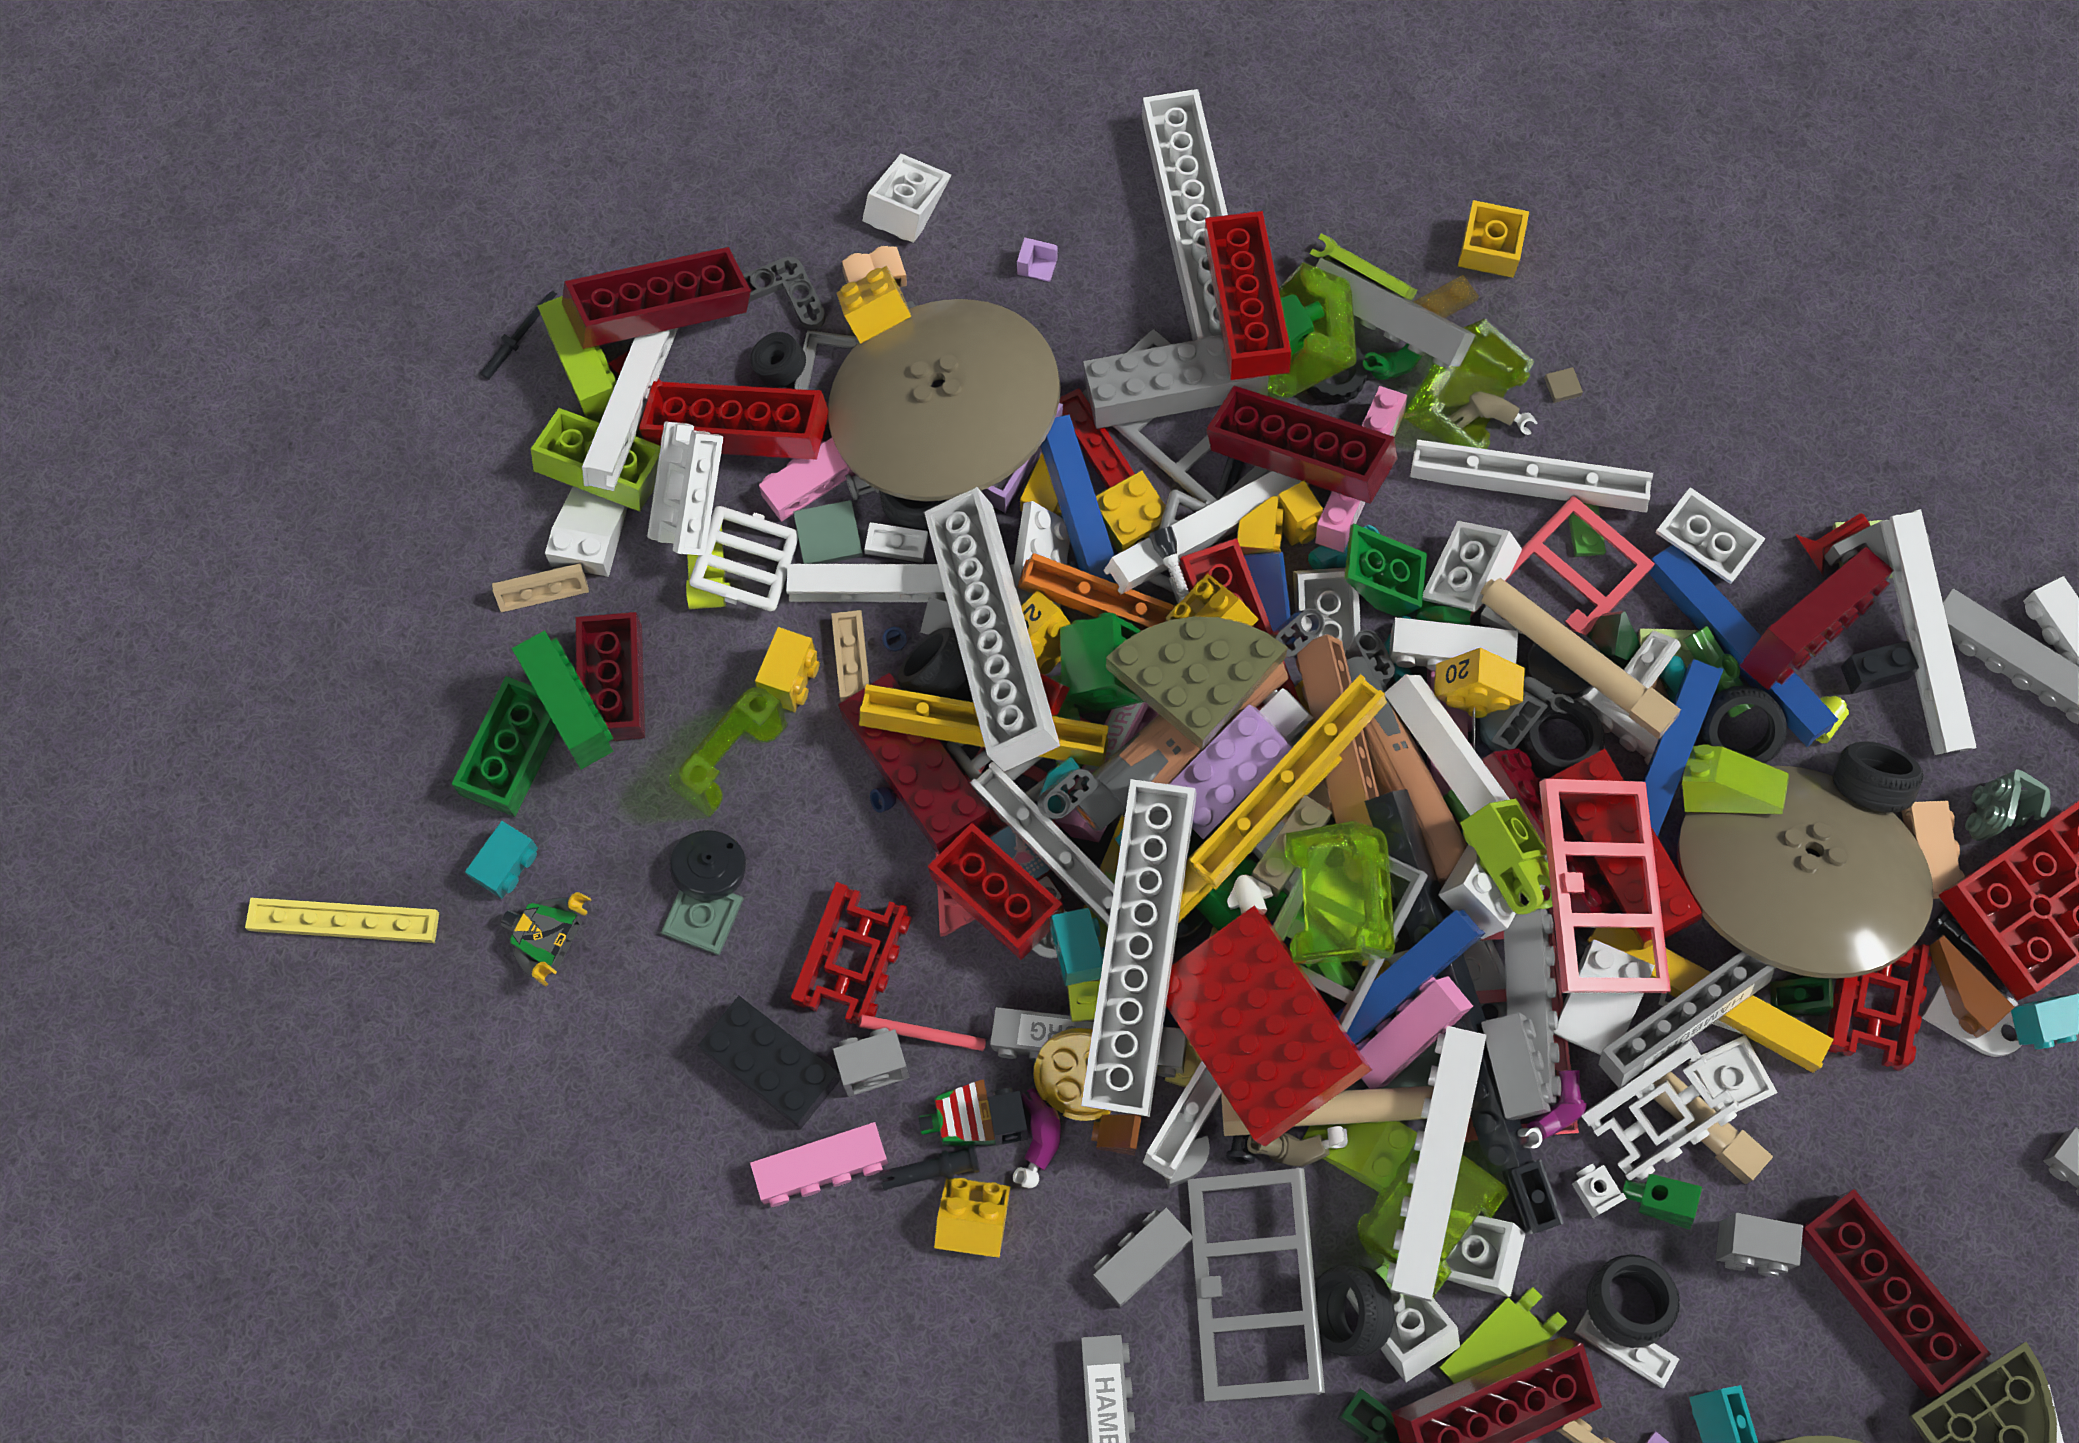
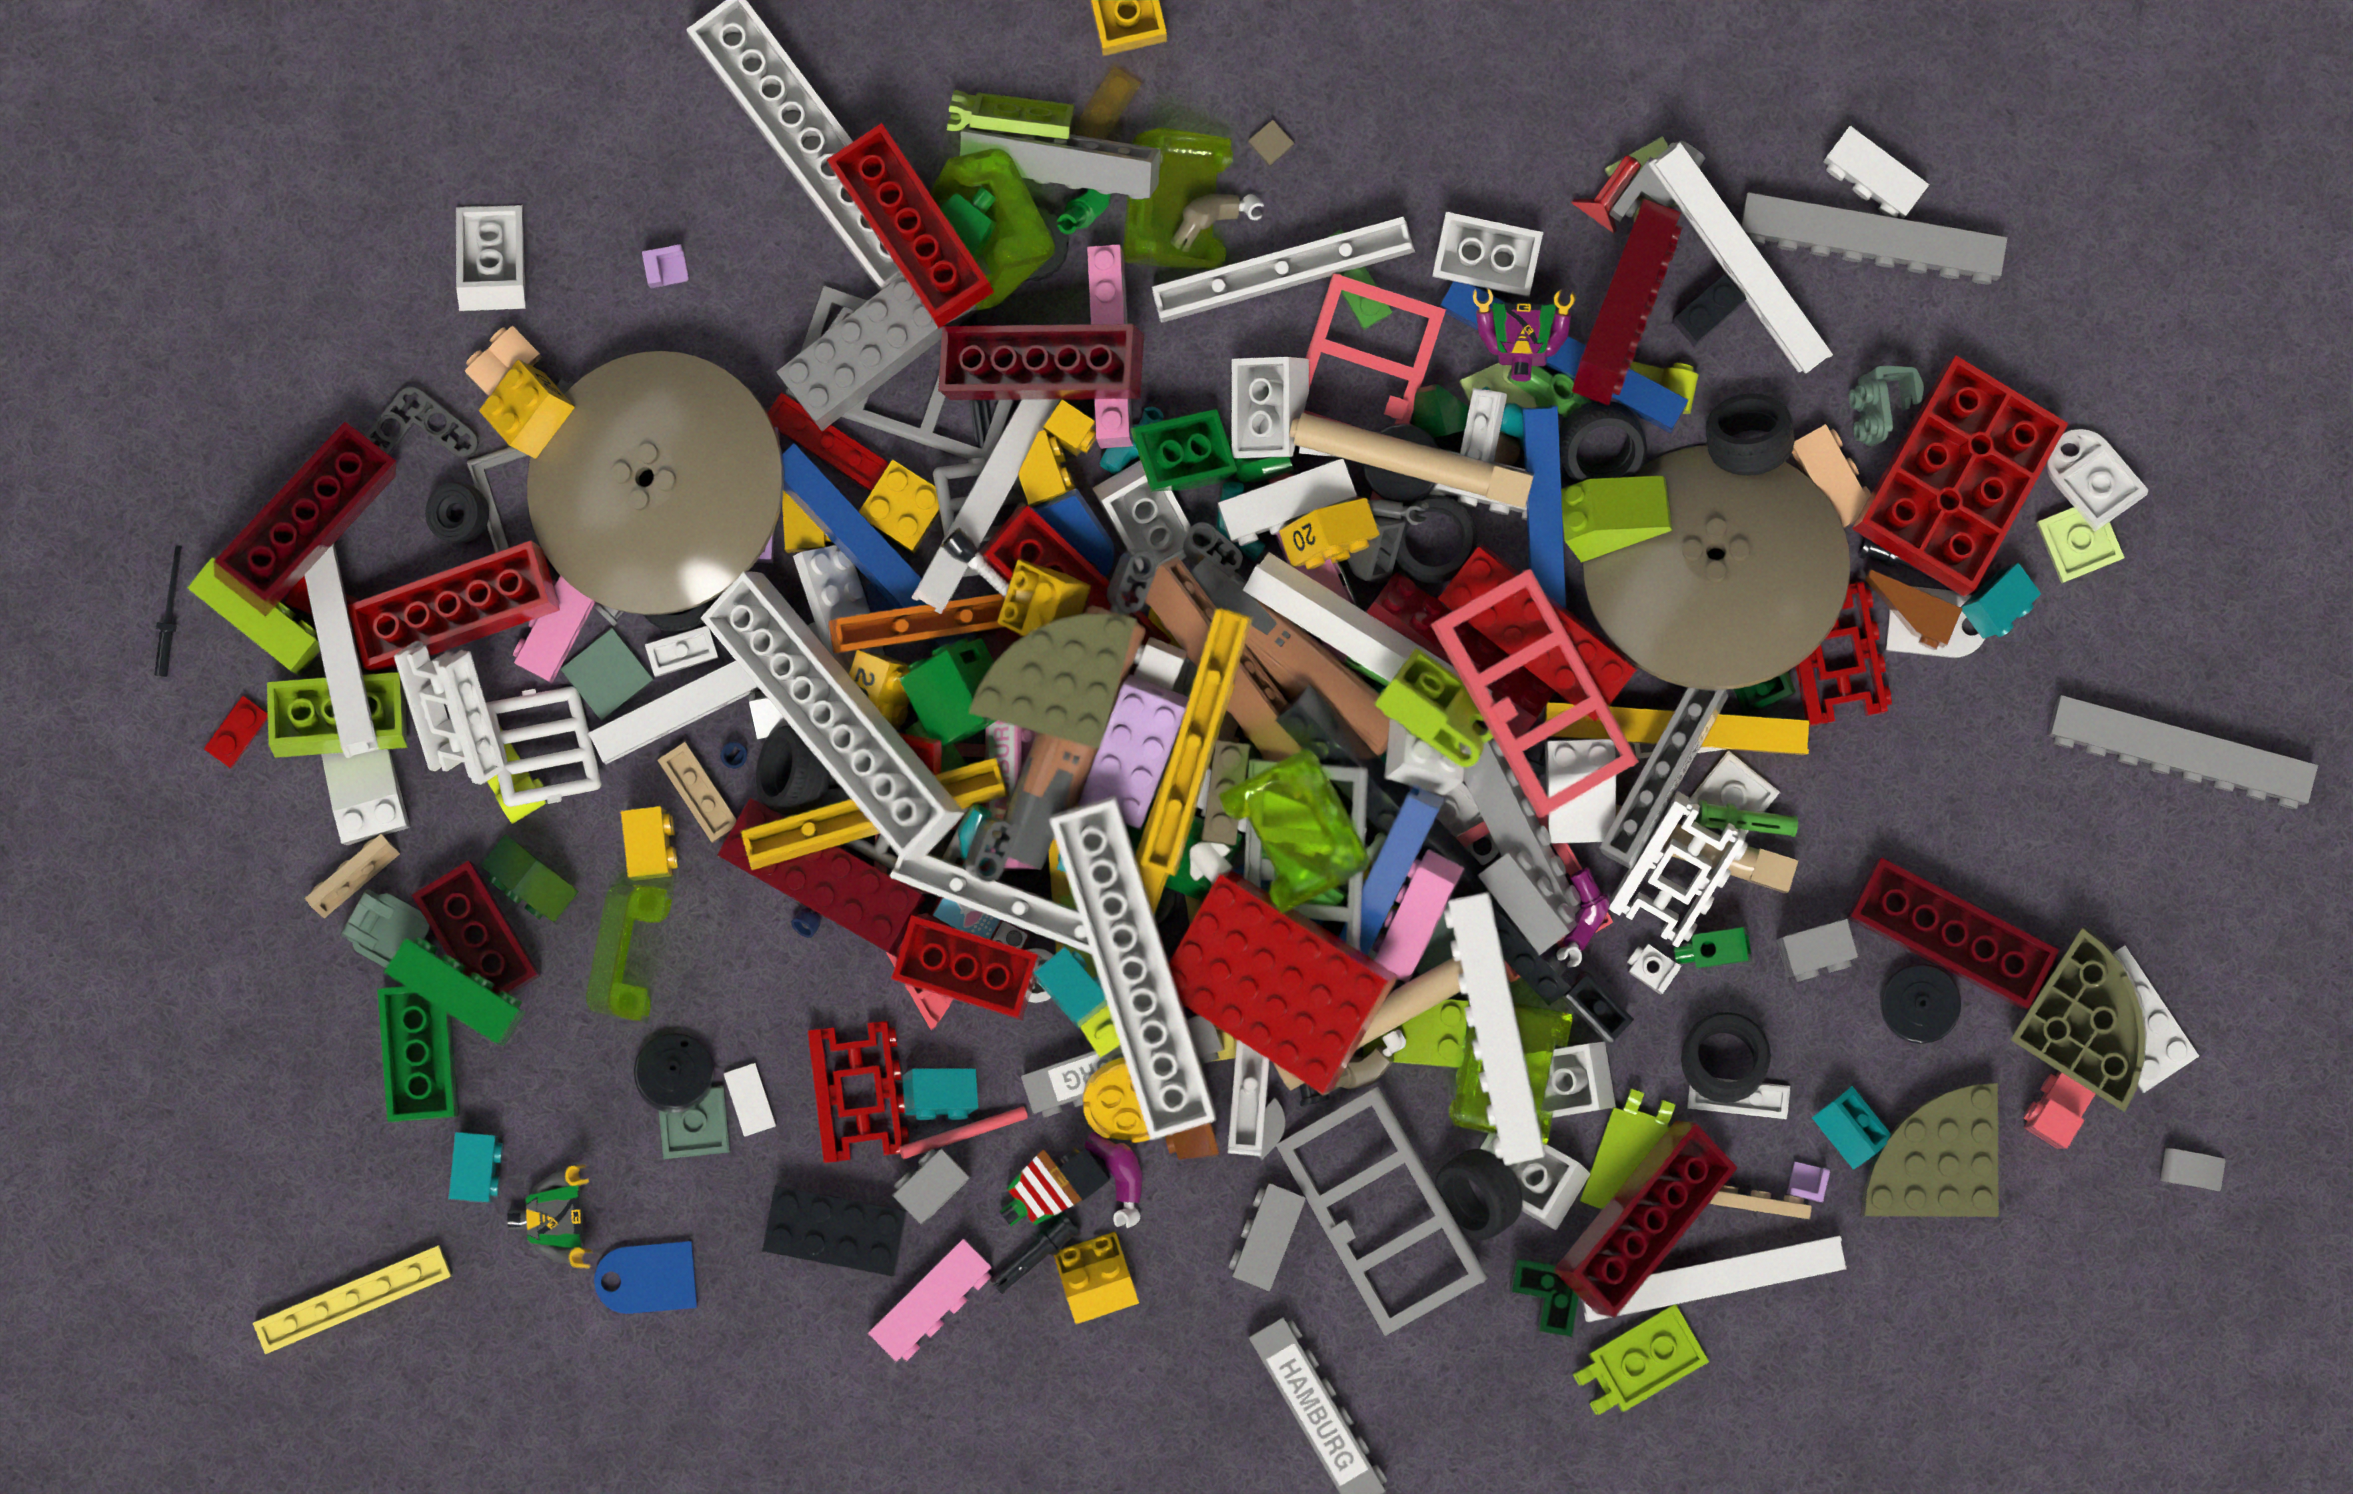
camera: 30 degrees left, 15 degrees up
(514, 442) = (237, 732): none -> red plate
(533, 619) = (381, 926): none -> sand green piece
(596, 1026) = (651, 1278): none -> blue tile
(674, 648) = (528, 880): none -> dark green brick
(758, 919) = (749, 1099): none -> white tile
(920, 988) = (940, 1093): none -> teal brick
(1717, 602) = (1523, 332): none -> torso
(1770, 1121) = (1719, 816): none -> bright green pin
(1833, 1343) = (1920, 1003): none -> black wheel

